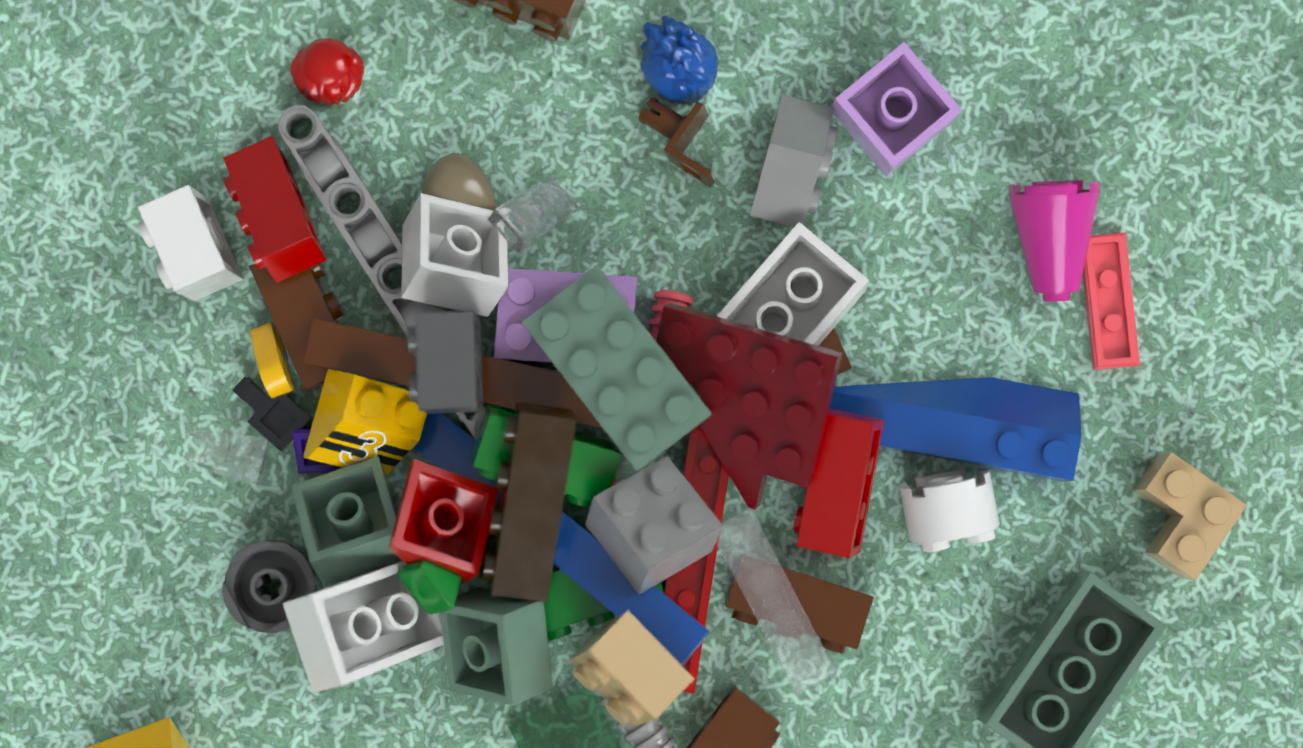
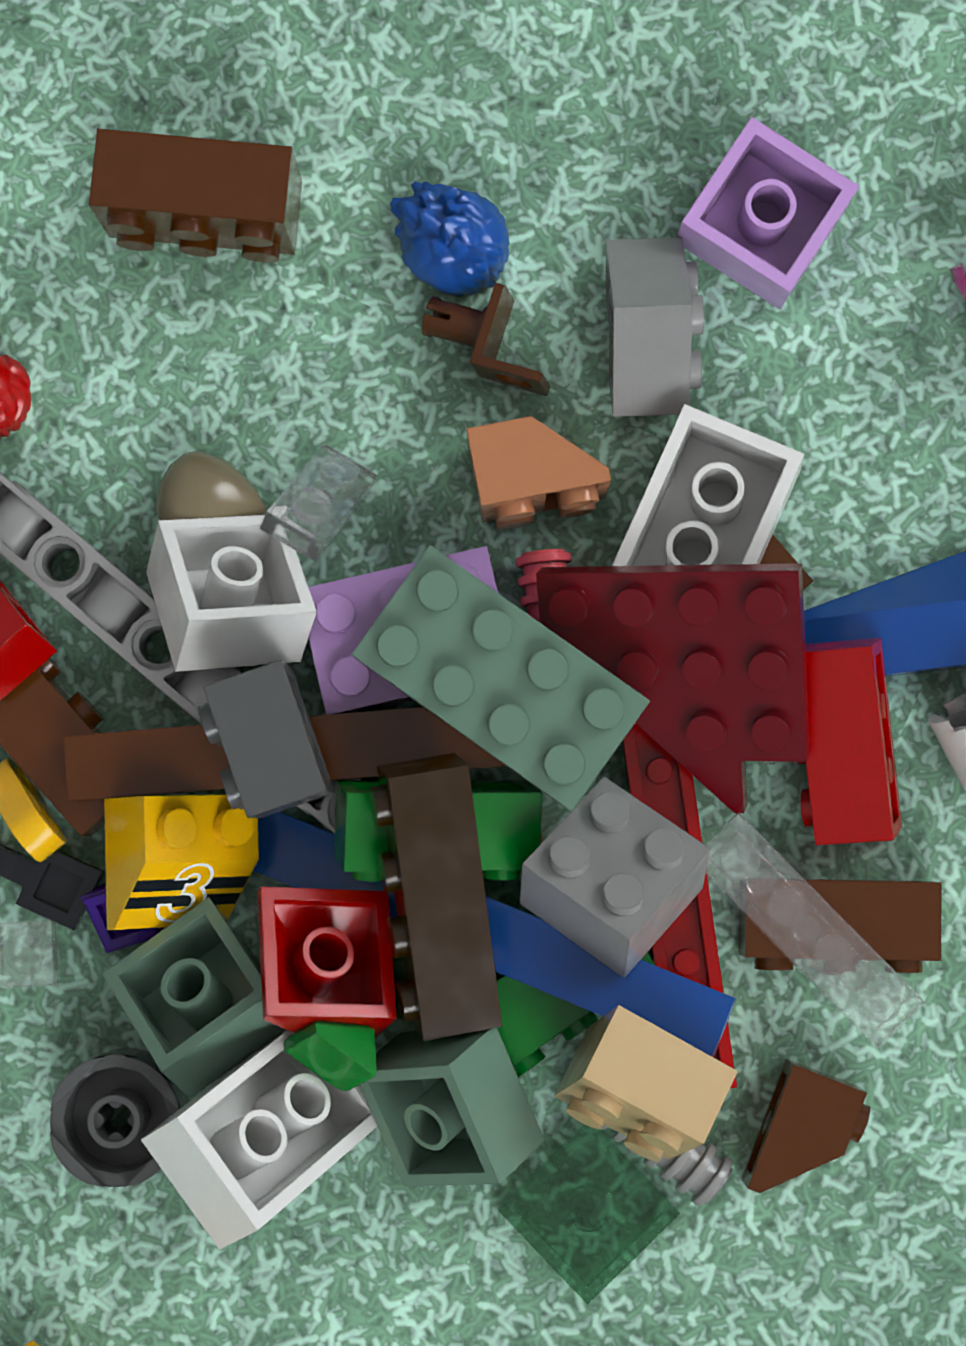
camera: 10 degrees left, 0 degrees up
(683, 235) = (532, 469): none -> nougat slope

